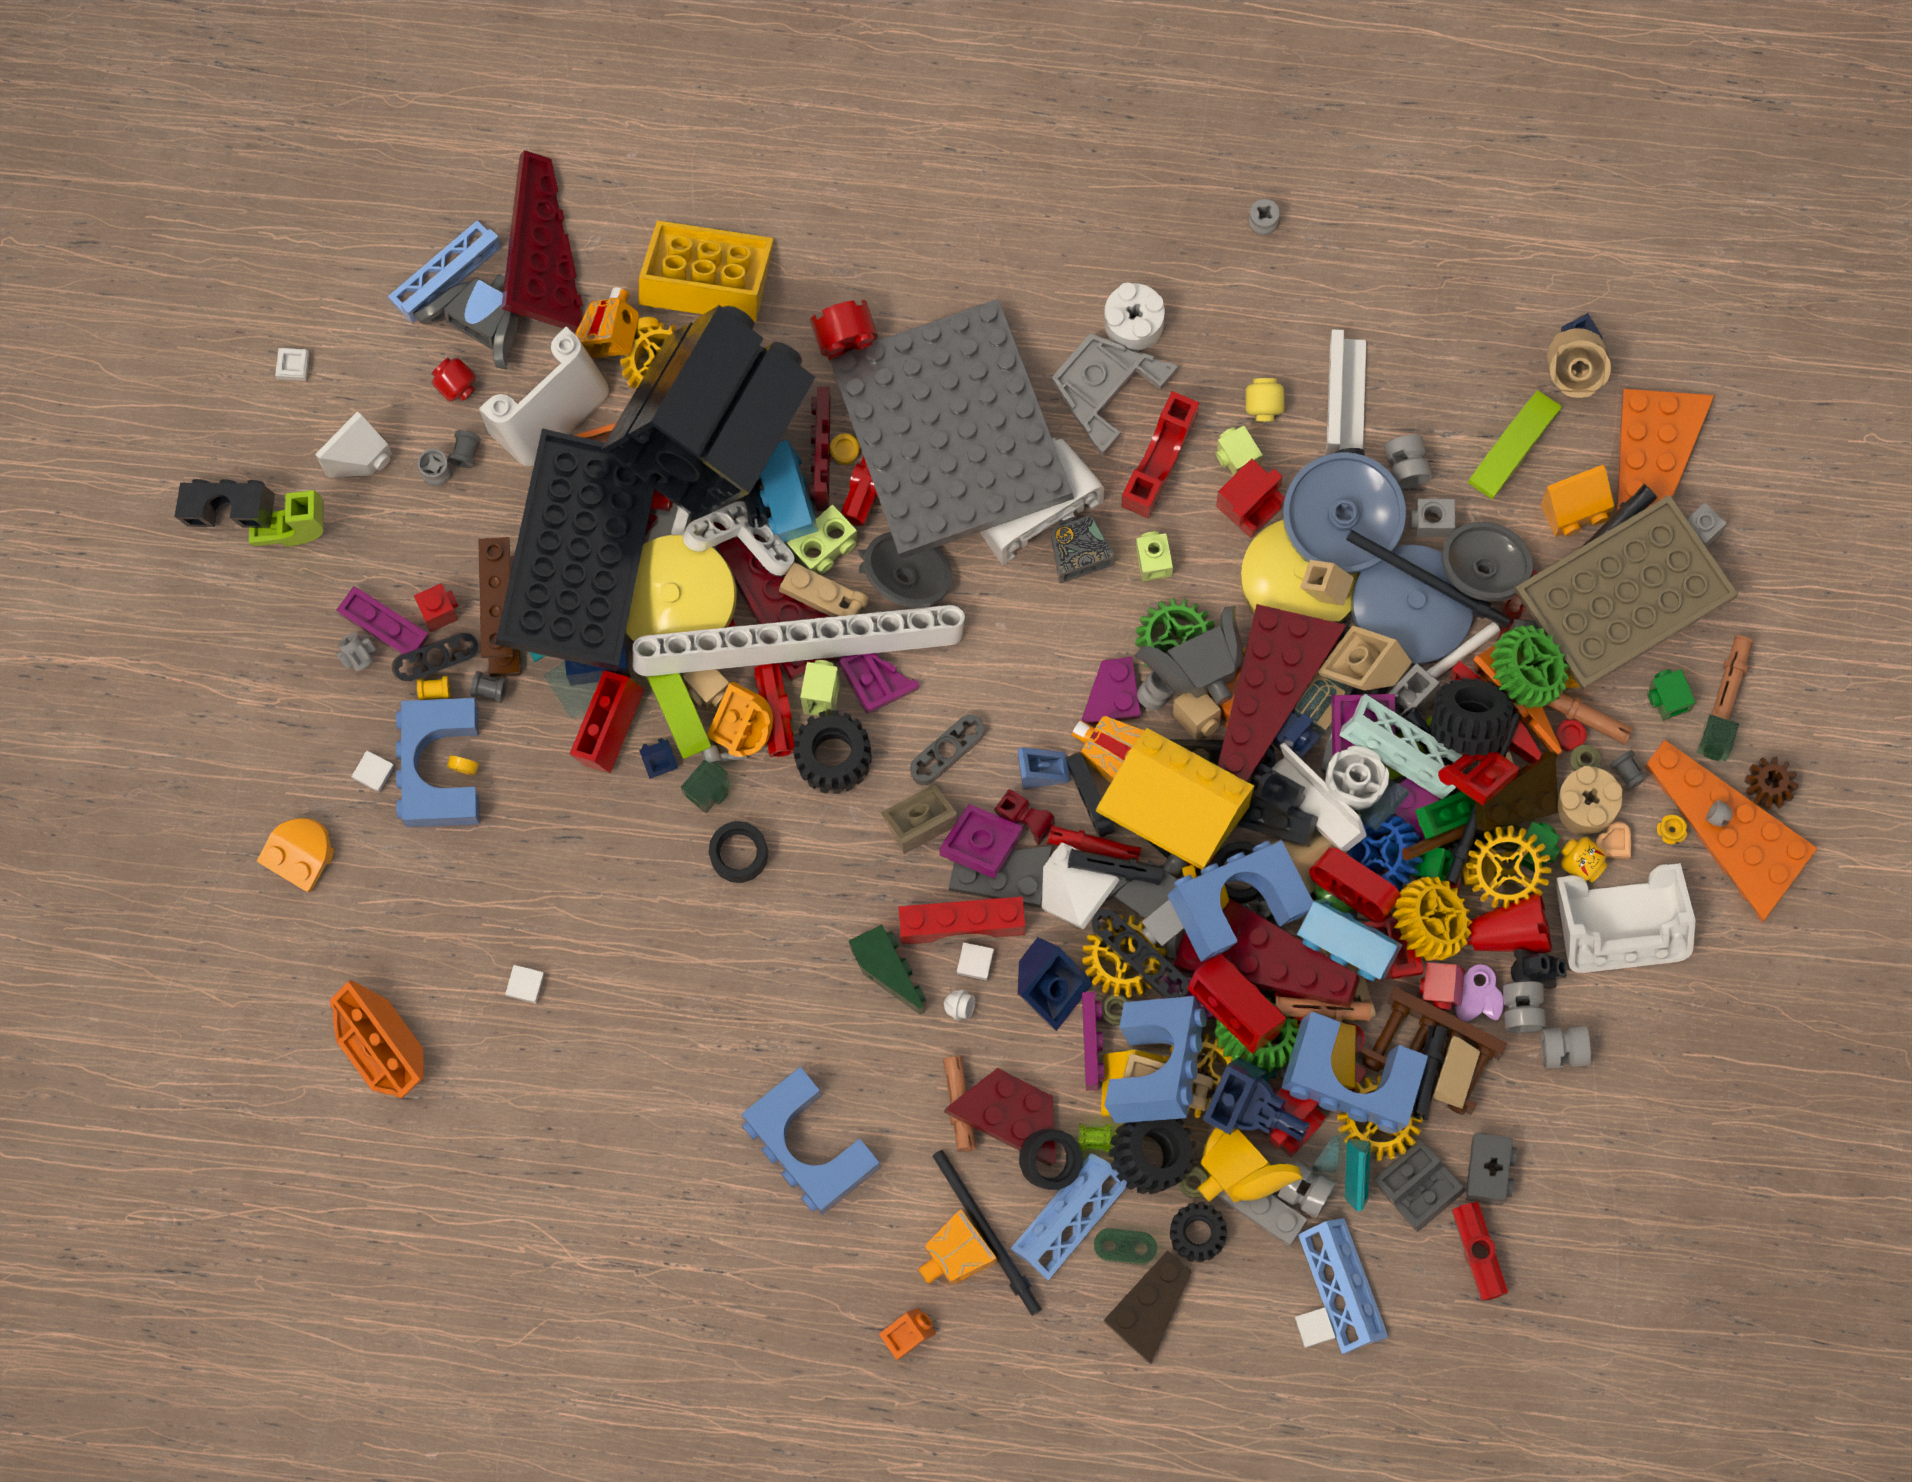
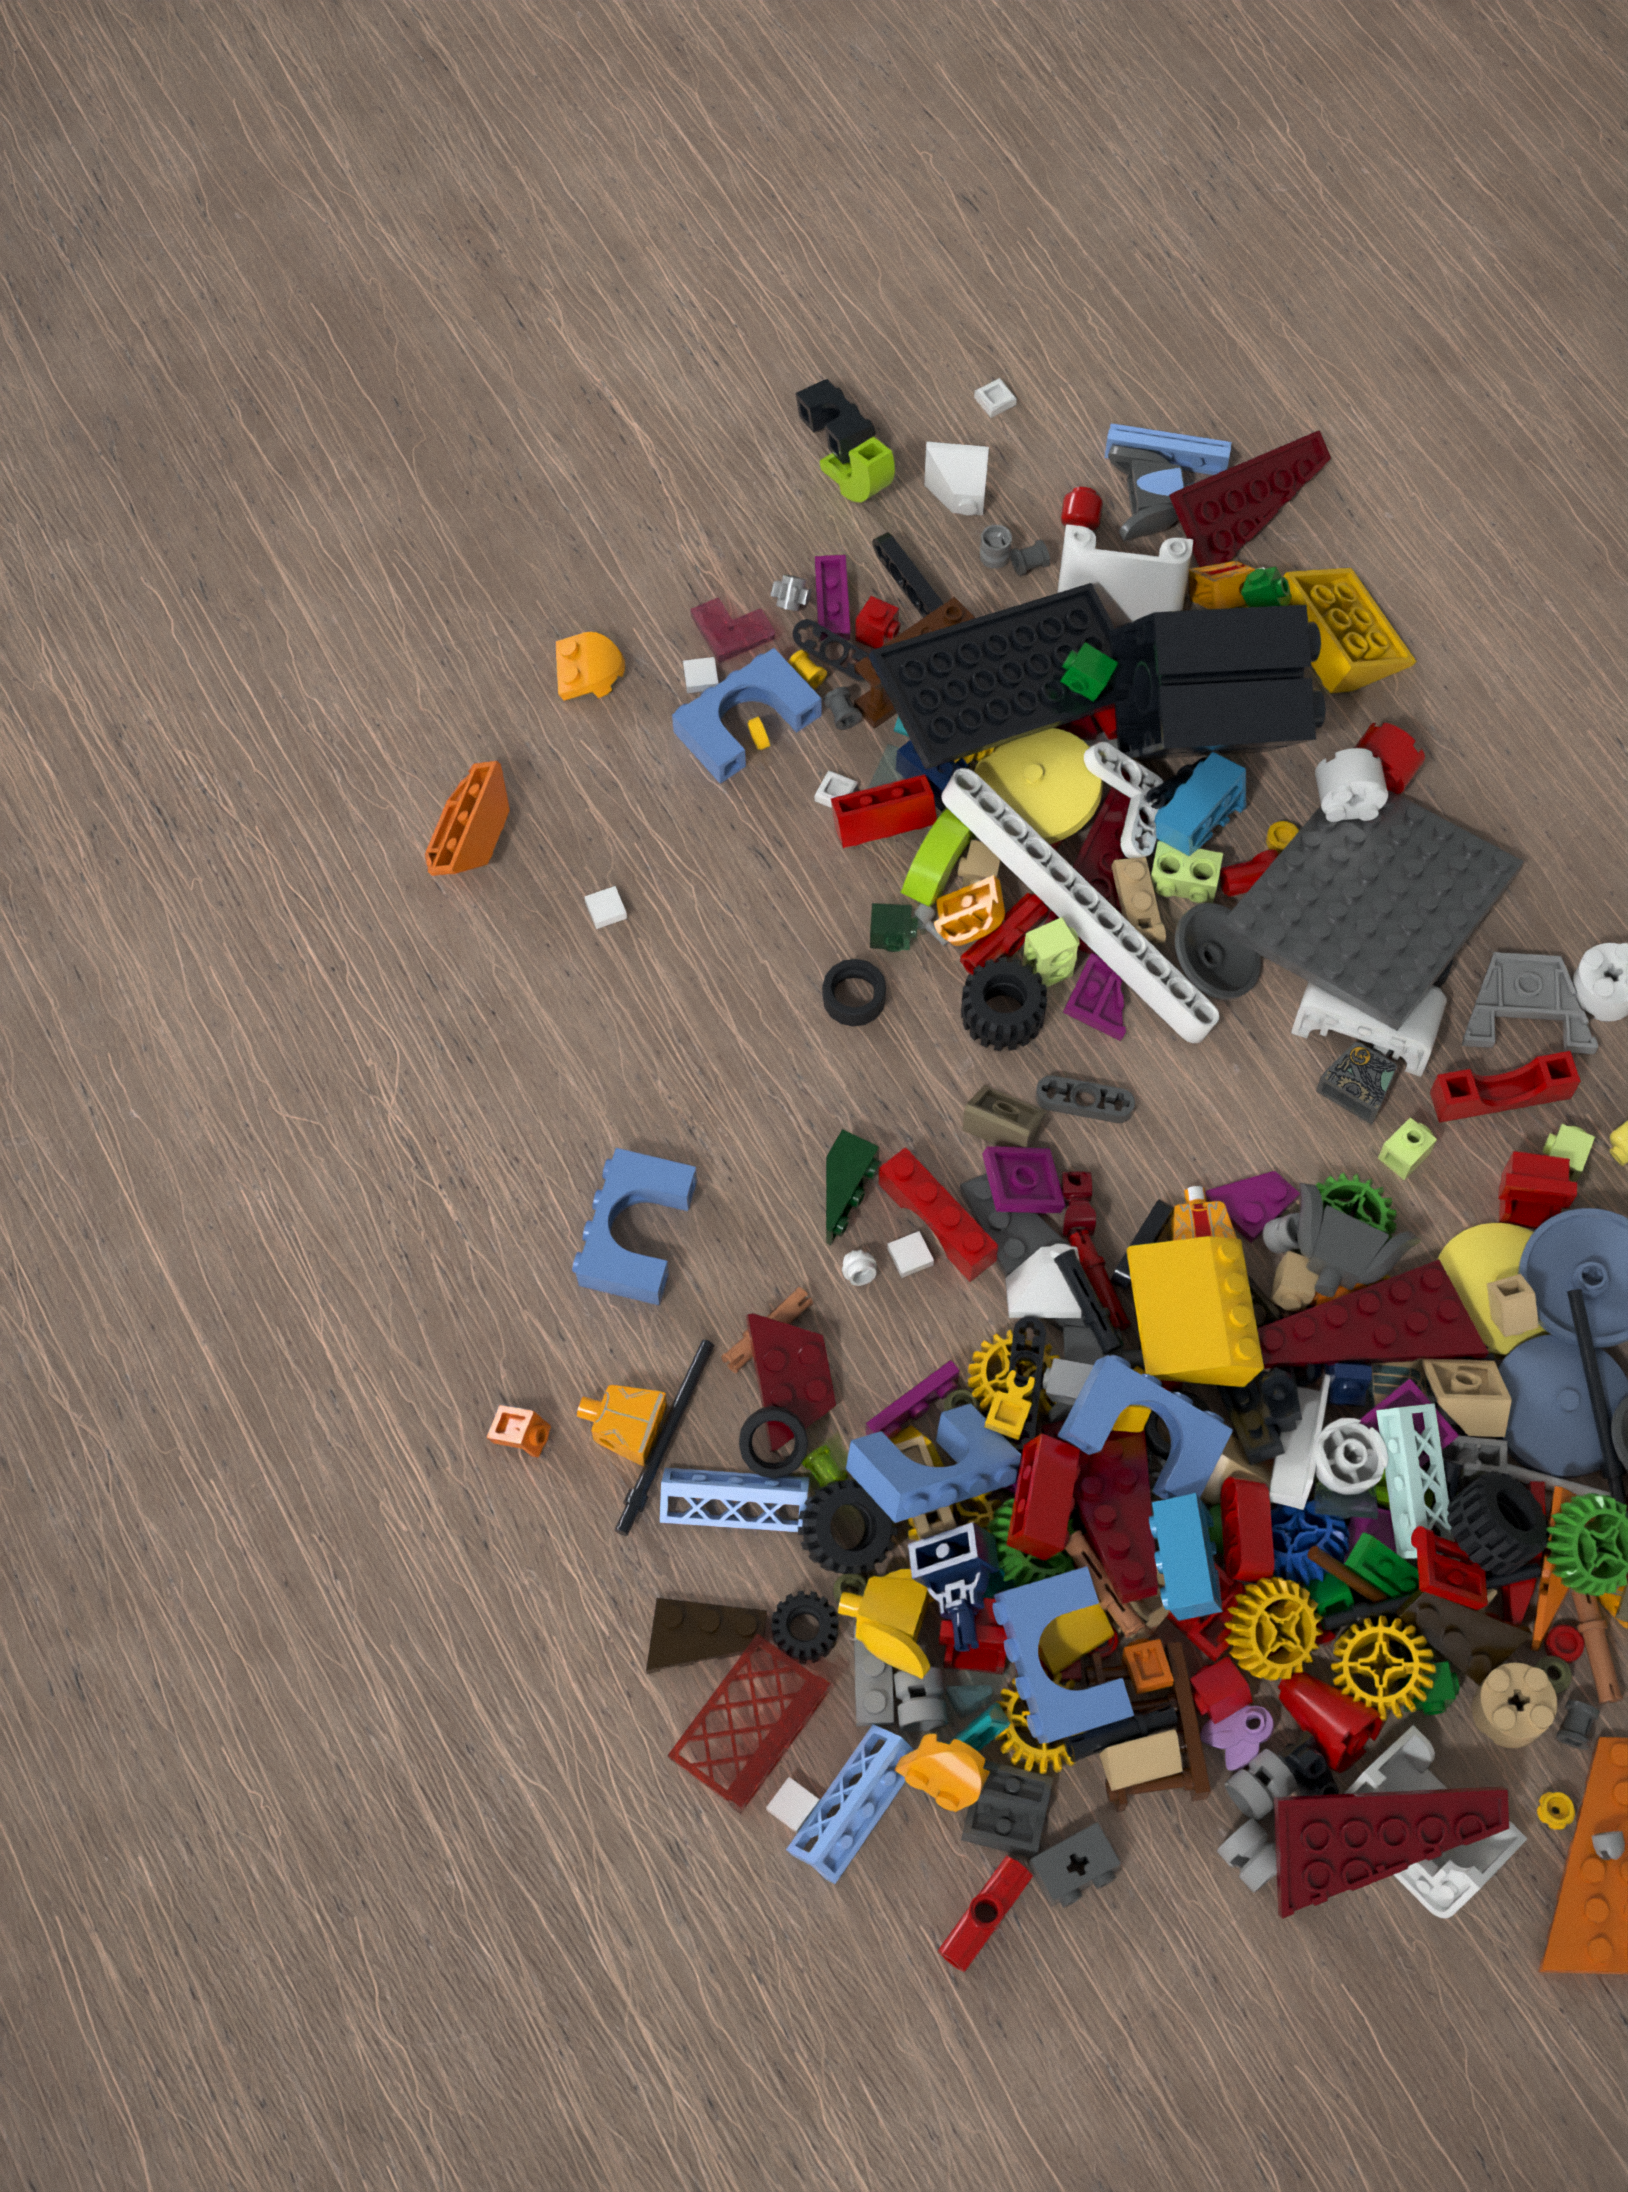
camera: 50 degrees right, 10 degrees down
(354, 728) = (729, 636): none -> clear pink plate
(415, 553) = (906, 574): none -> black beam
(554, 742) = (834, 786): none -> white tile
(622, 490) = (1088, 671): none -> green brick
(647, 307) = (1266, 588): none -> green brick
(658, 758) = (885, 874): dark blue tile -> none
(821, 459) = (1254, 820): dark red wing -> none
(856, 375) = (1351, 785): none -> white brick
(1042, 767) = (1132, 1185): medium blue slope -> none
(1050, 982) = (938, 1329): dark blue slope -> none
(1125, 1246) = (743, 1570): clear green plate -> none
(1156, 980) = (1009, 1410): none -> yellow plate
(1265, 1306) = (775, 1743): none -> clear red fence
(1371, 1210) = (945, 1772): none -> light orange slope
(1394, 1020) = (1147, 1665): none -> orange bracket
(1583, 859) = (1453, 1741): yellow head -> none
(1610, 968) = (1363, 1837): none -> dark red wing
(1616, 841) = (1495, 1762): light nougat tile -> none

